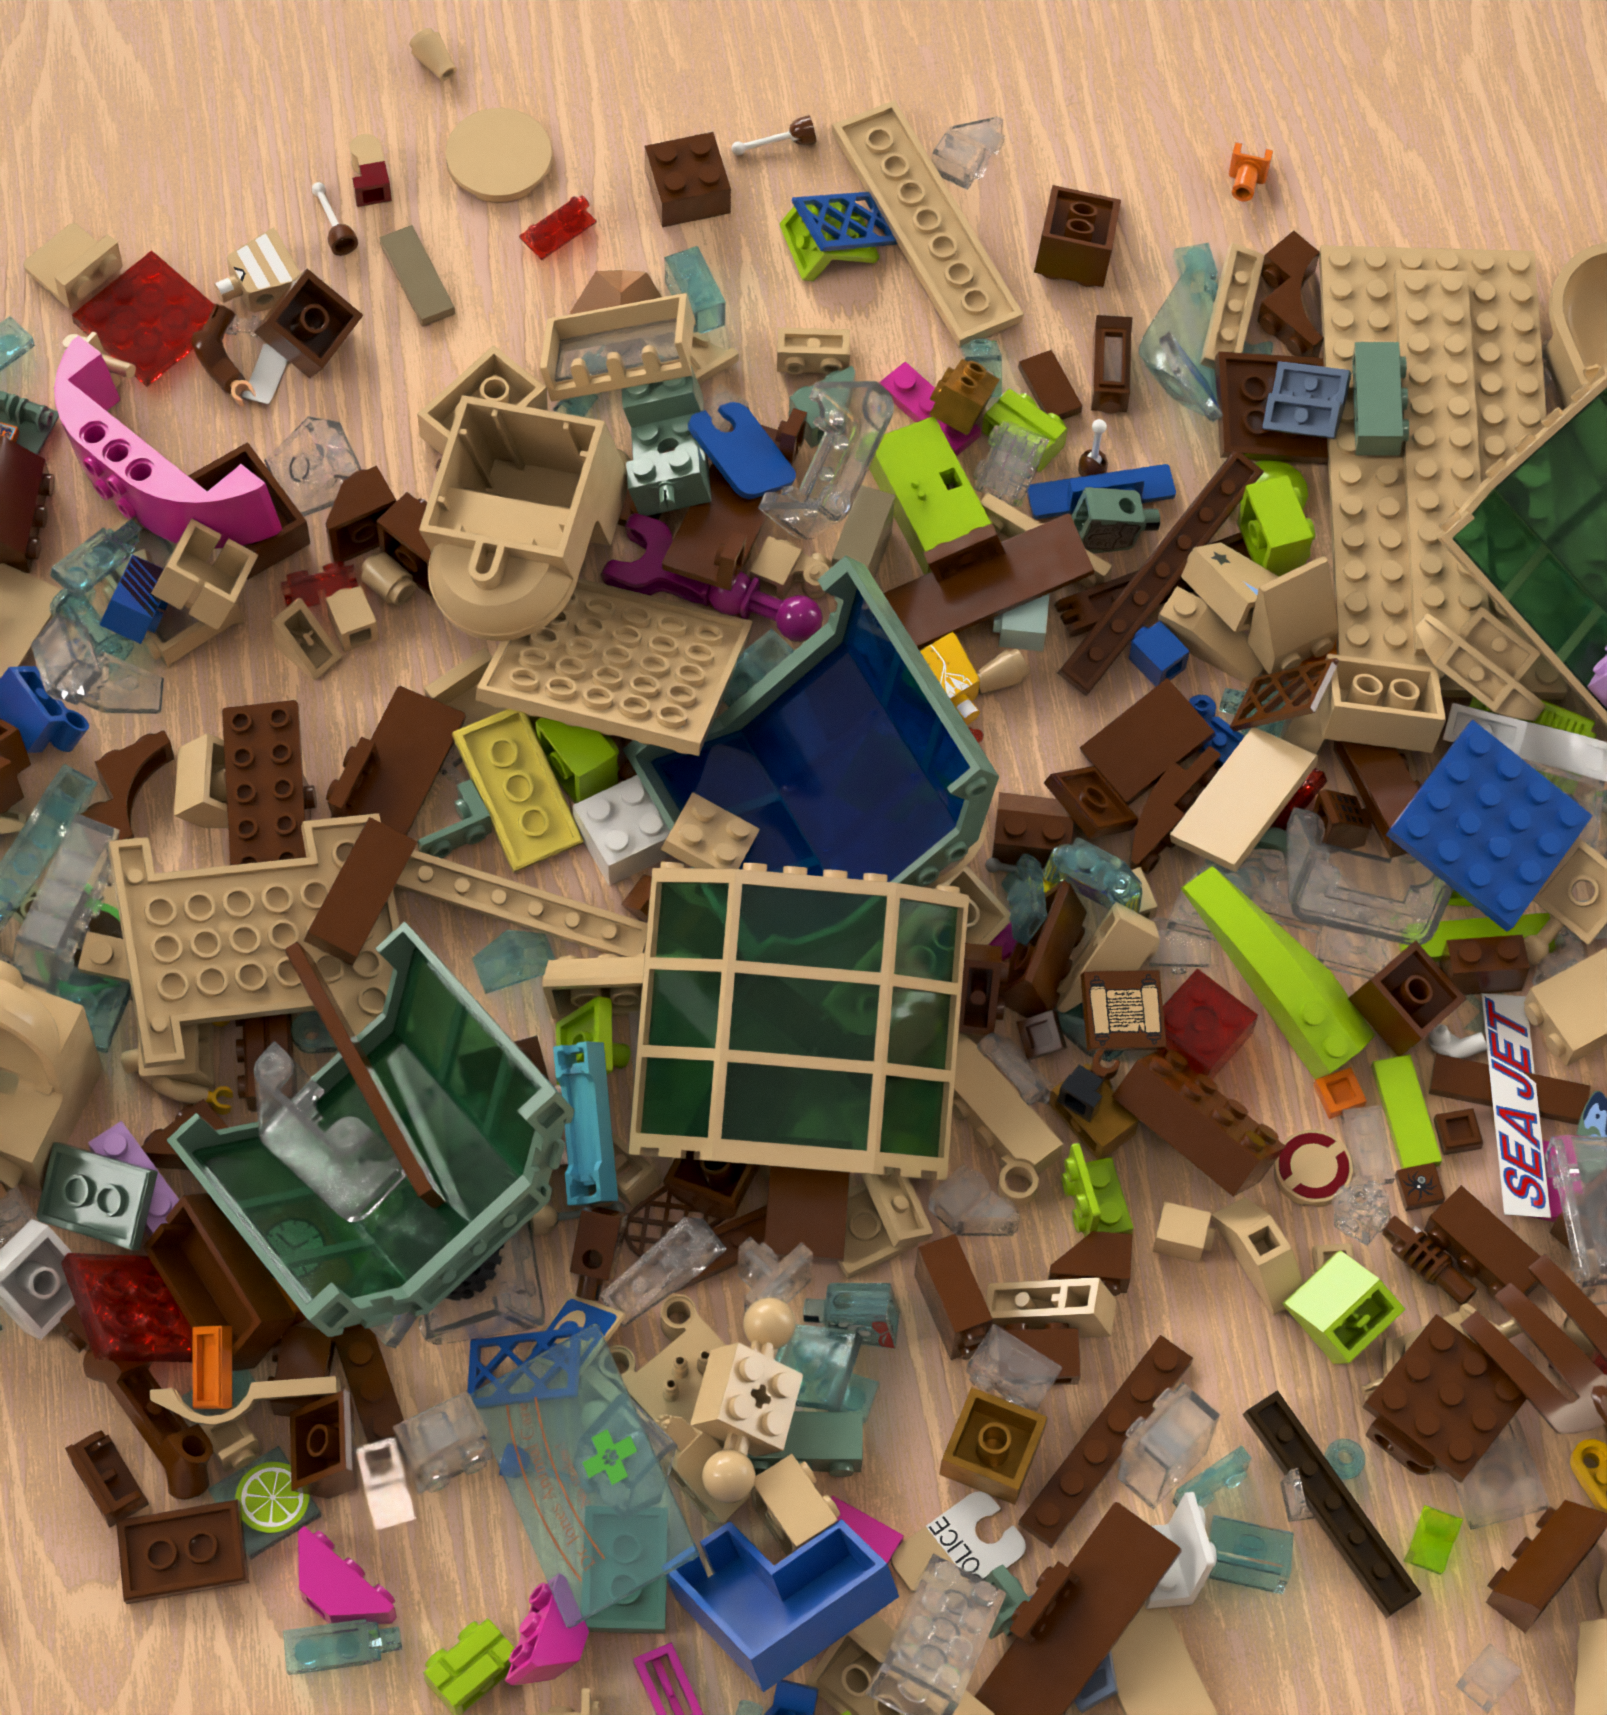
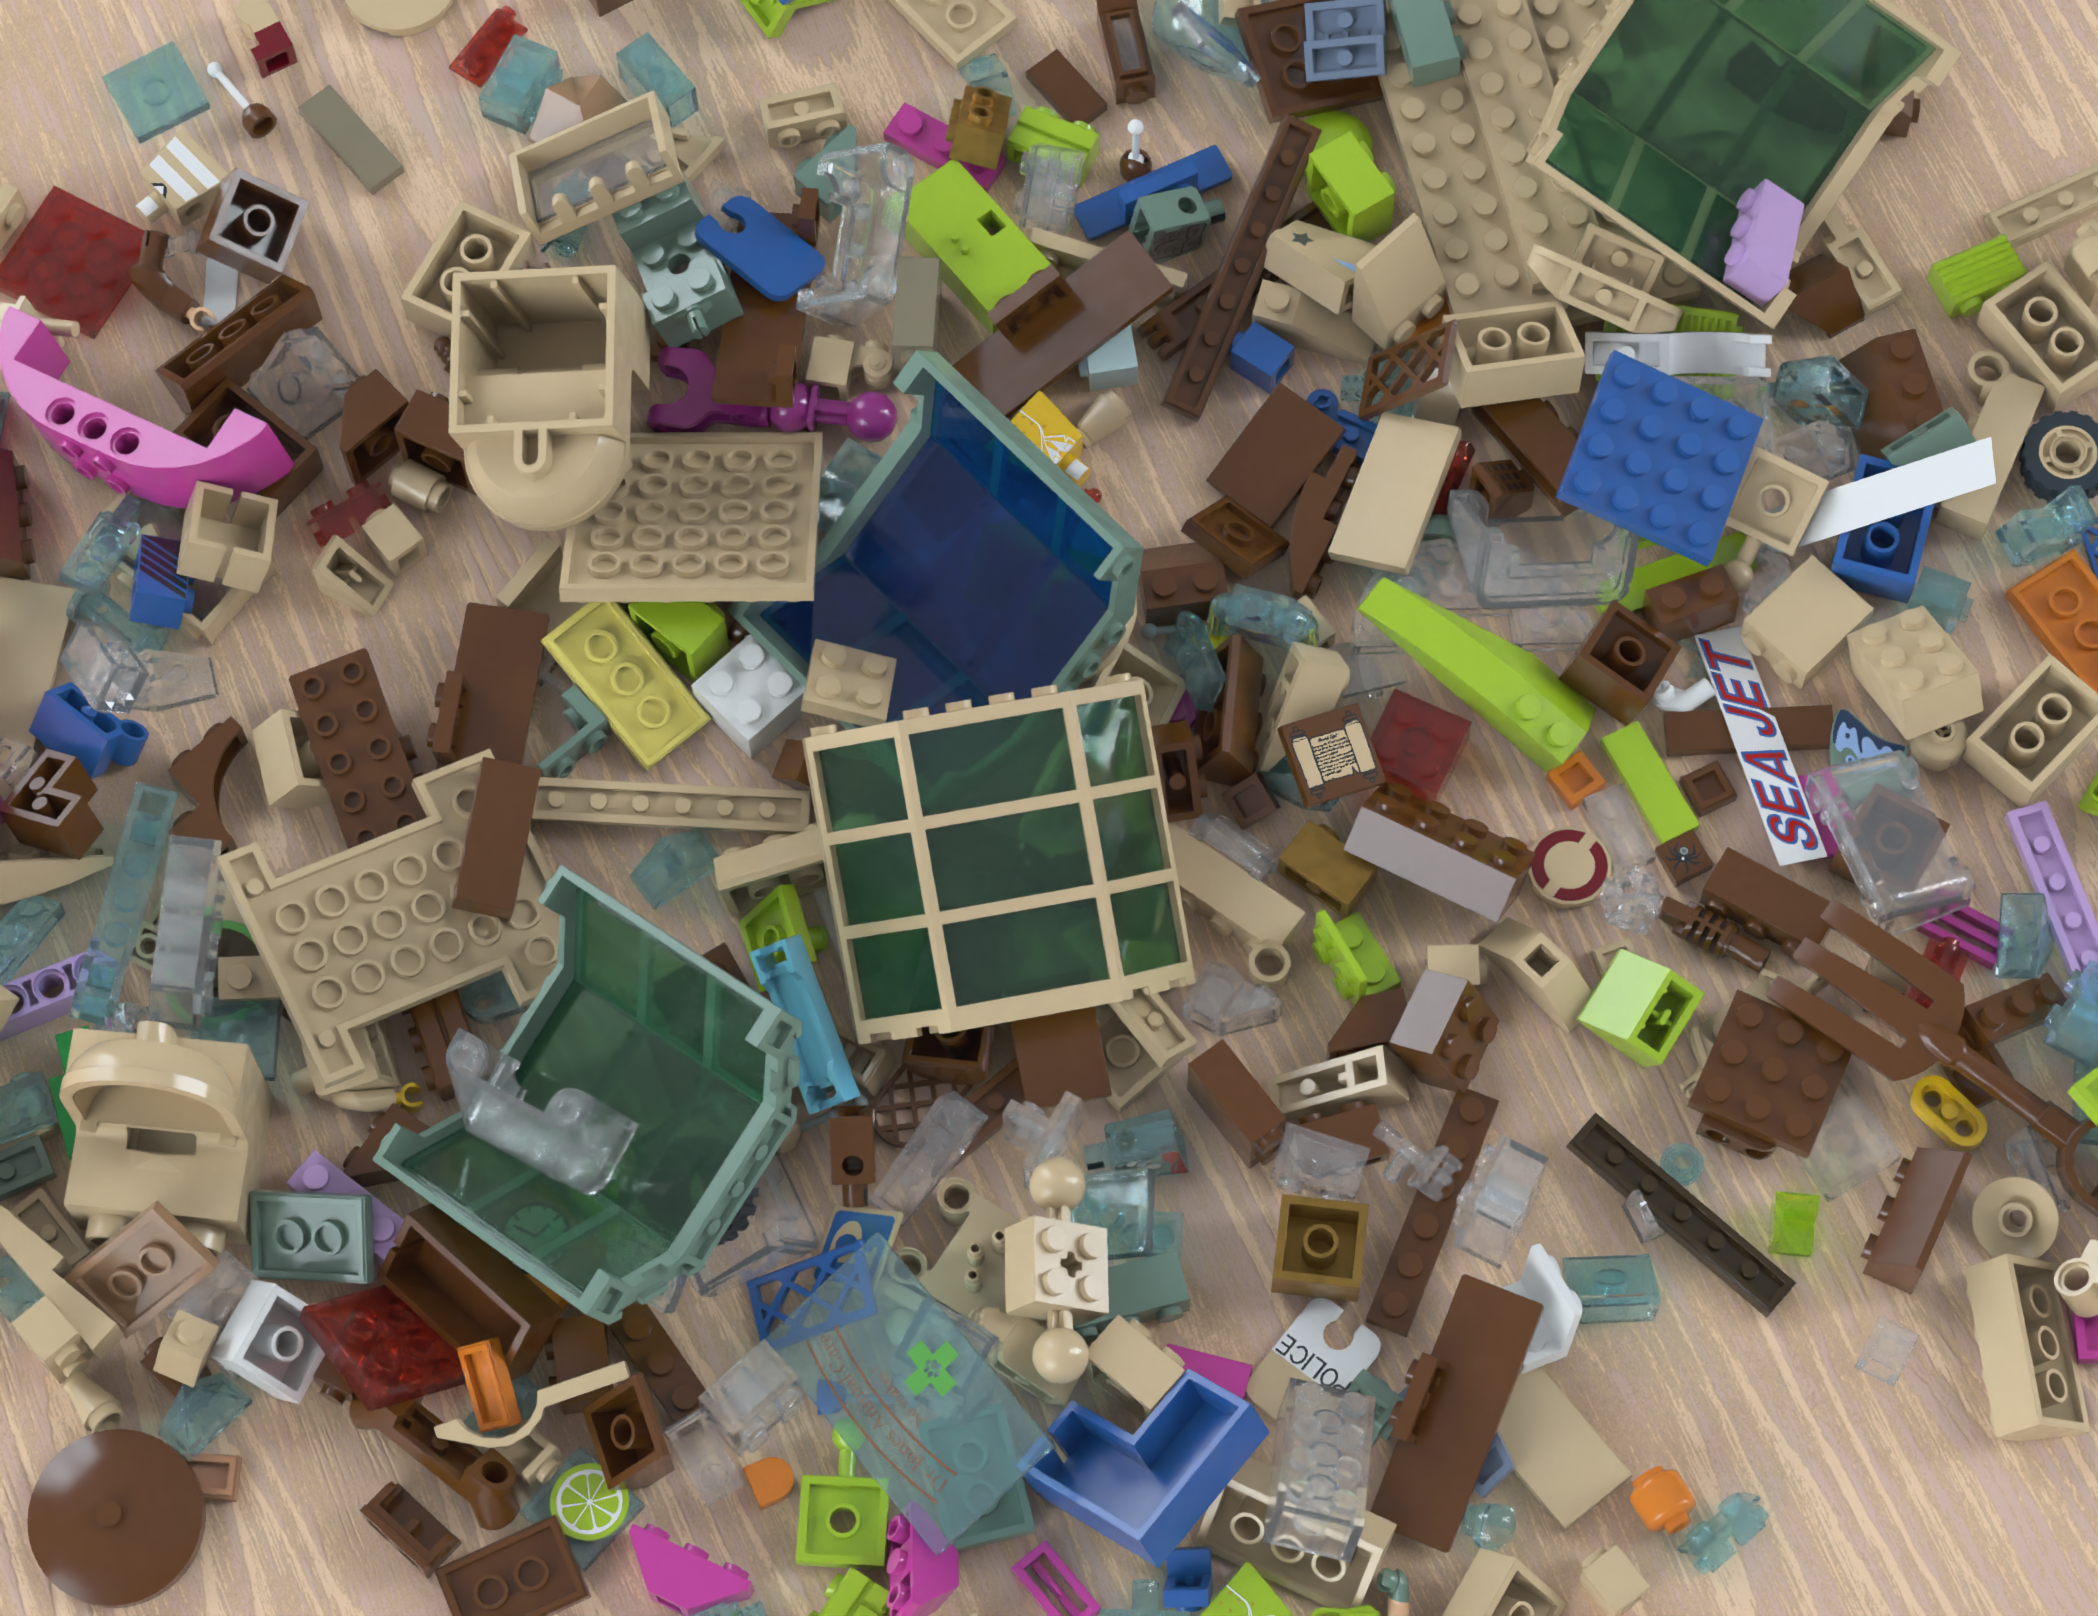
camera: 10 degrees left, 5 degrees up
(262, 196) = (156, 92): none -> clear light blue tile
(268, 417) = (239, 341): none -> reddish brown slope
(365, 1076) = (562, 1037): reddish brown tile -> none
(439, 1522) = (770, 1481): none -> orange tile
(488, 1549) = (823, 1498): none -> lime plate
(573, 263) = (519, 84): none -> clear light blue brick
(1083, 1087) = (1311, 849): black piece -> none
(1110, 1396) = (1425, 1164): none -> clear arm
(1159, 1281) = (1444, 1031): none -> reddish brown brick
(1226, 1472) = (1566, 1210): clear light blue plate -> none

